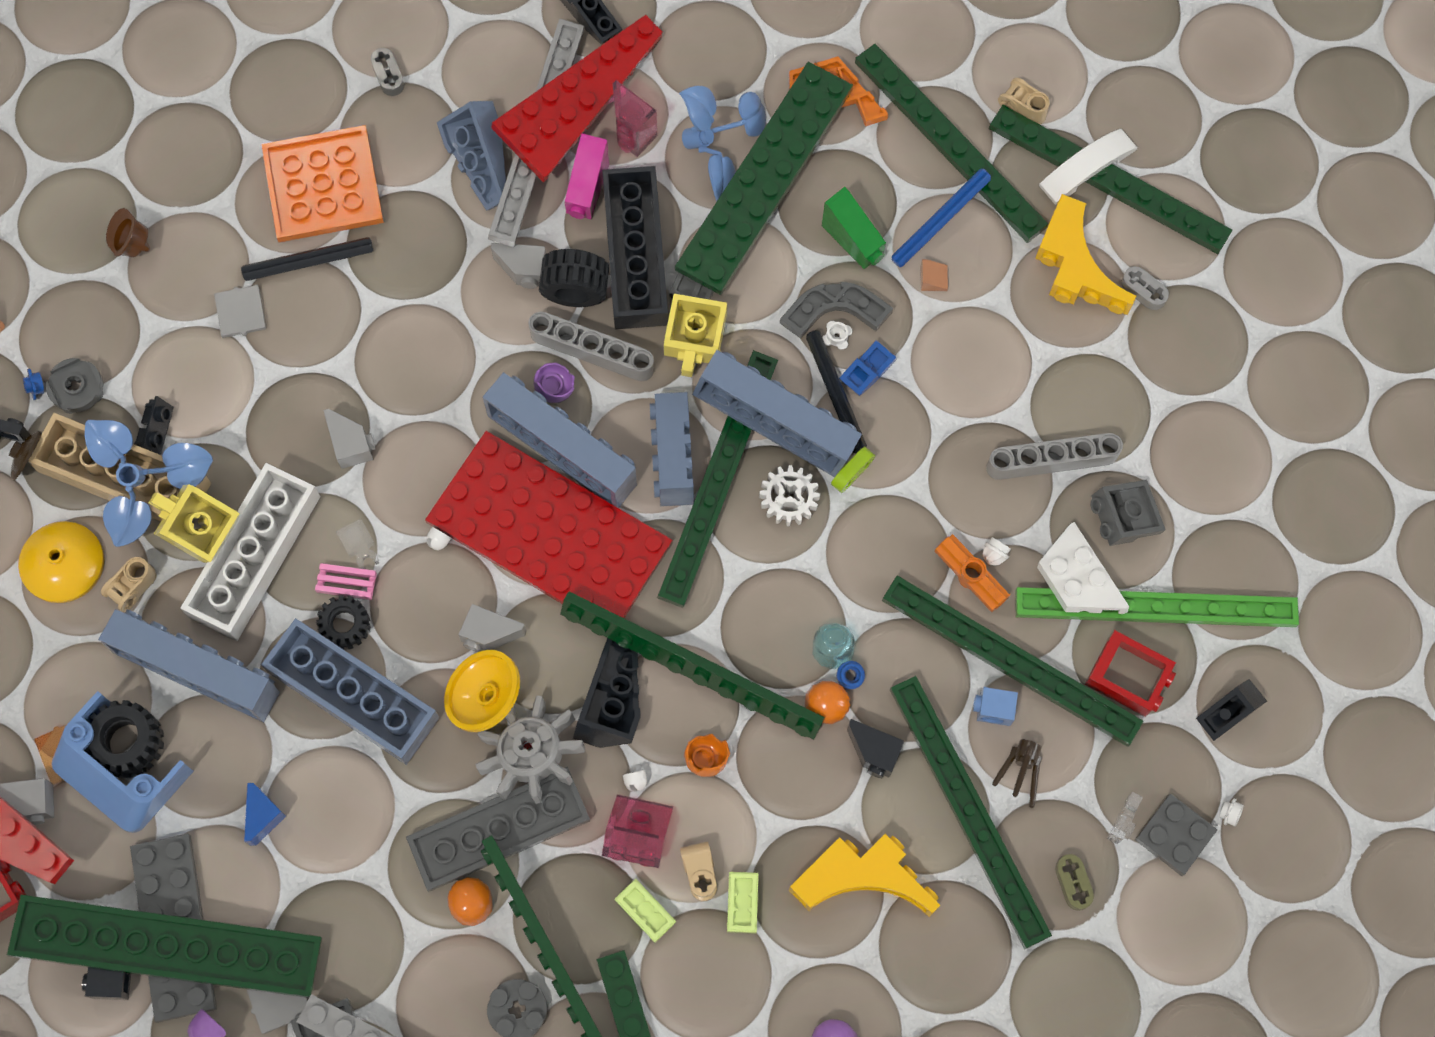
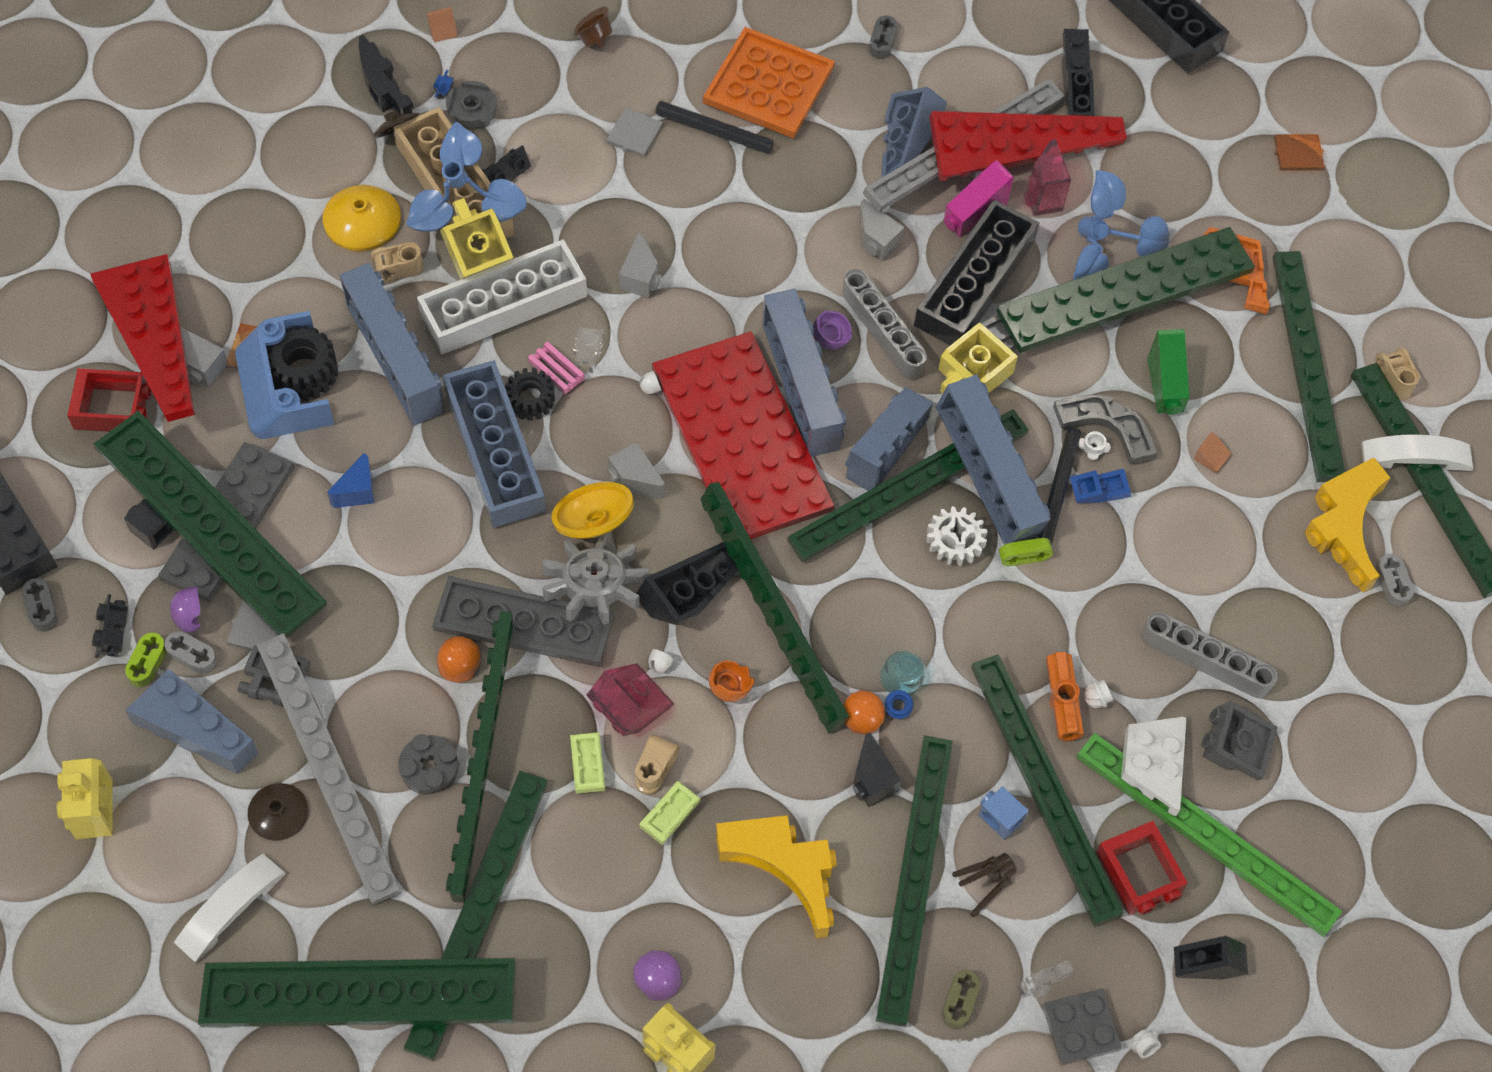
camera: 35 degrees right, 10 degrees down
(574, 278) = (908, 262): black tyre -> none
(941, 217) = (1253, 412): blue axle -> none

